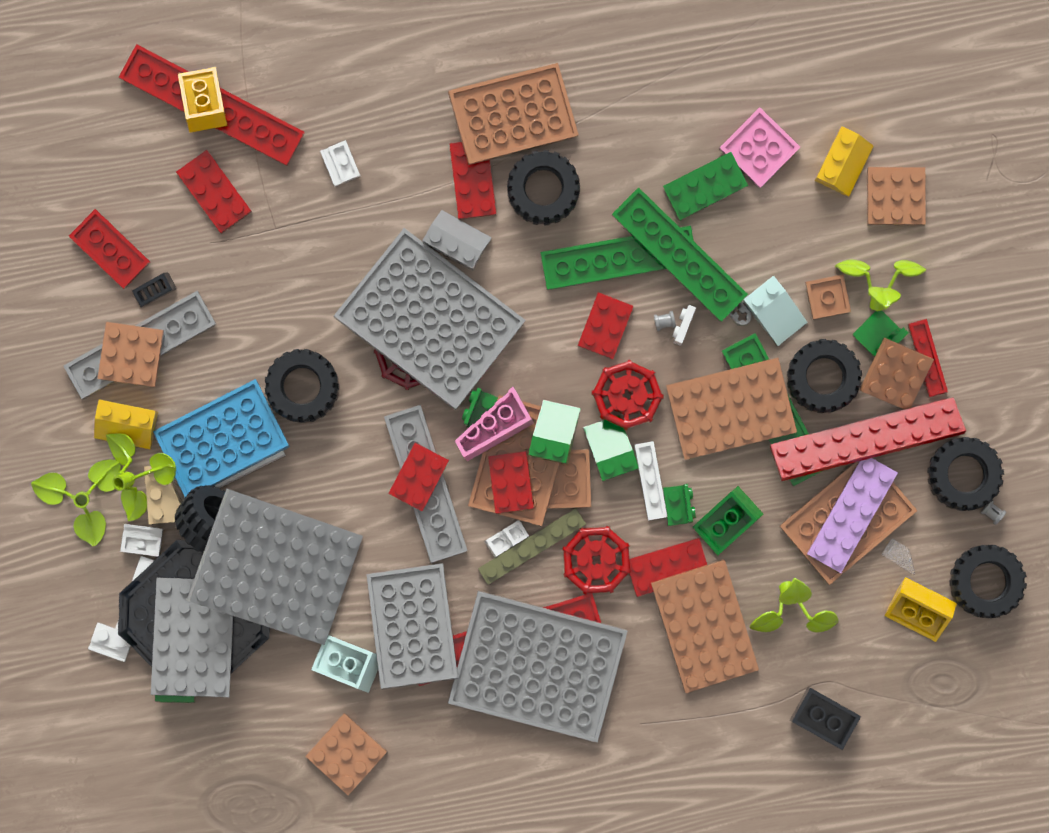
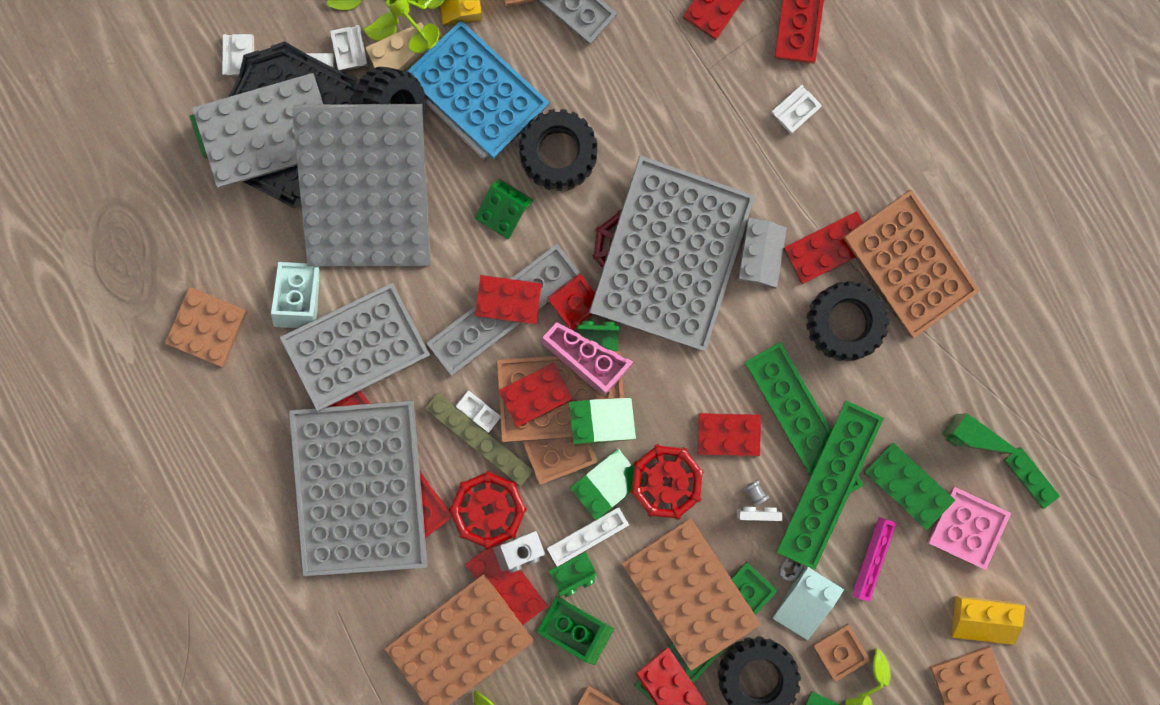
camera: 70 degrees right, 0 degrees up
(335, 453) = (503, 208): none -> green bracket
(440, 420) = (573, 301): none -> red plate
(640, 555) = (507, 552): none -> brick
(678, 117) = (970, 433): none -> green slope
(736, 77) = (1032, 478): none -> green plate
(757, 239) = (874, 559): none -> dark pink plate

